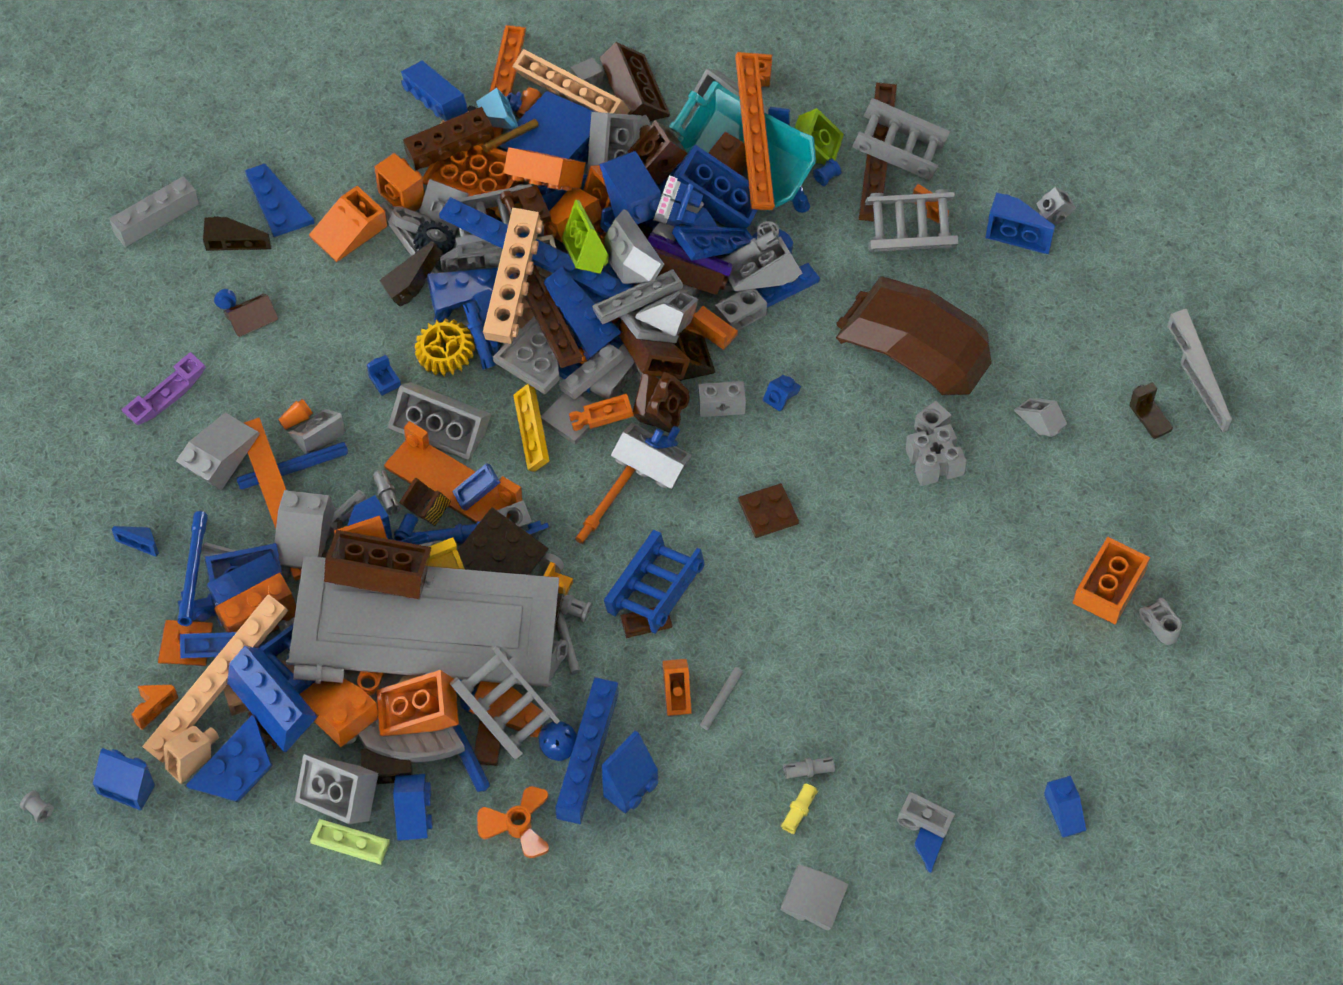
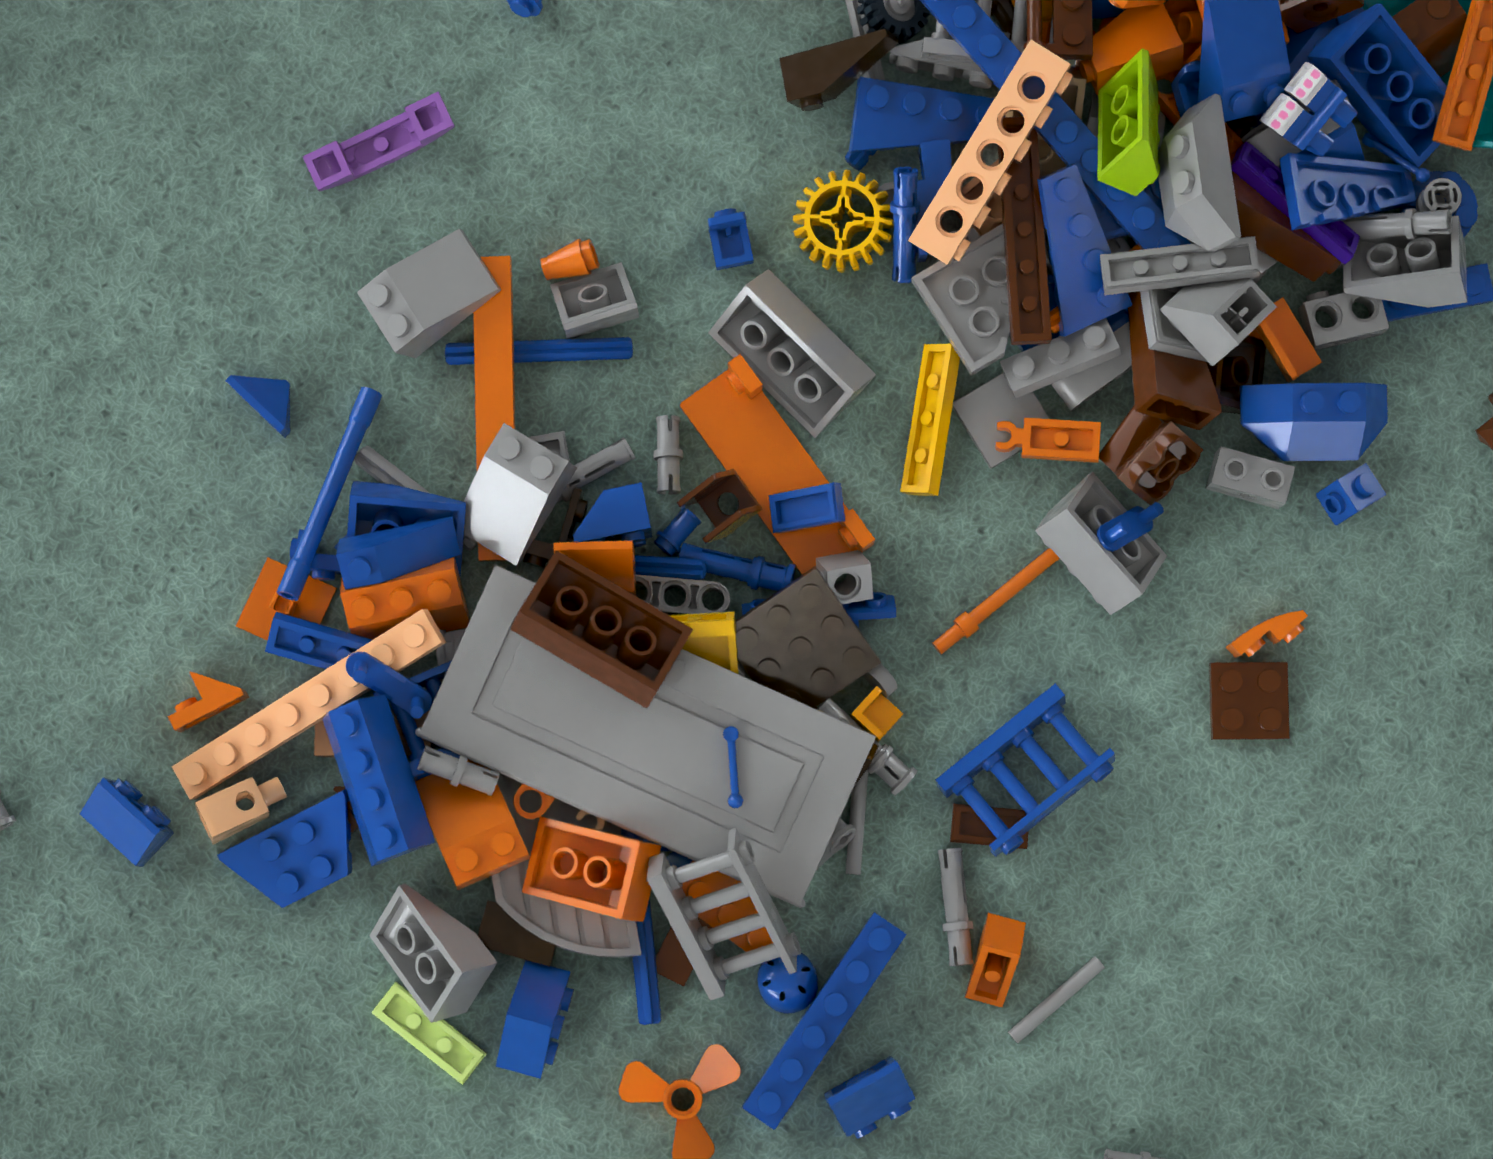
camera: 20 degrees right, 25 degrees up
(251, 314) = (557, 41): reddish brown panel -> none
(269, 644) = (387, 681): none -> blue piece
(473, 602) = (735, 799): none -> blue hinge
(646, 675) = (955, 907): none -> light grey pin
(744, 356) = (1315, 418): none -> blue wedge
(753, 227) = (1422, 174): none -> blue hinge
(763, 469) = (1280, 627): none -> orange slope

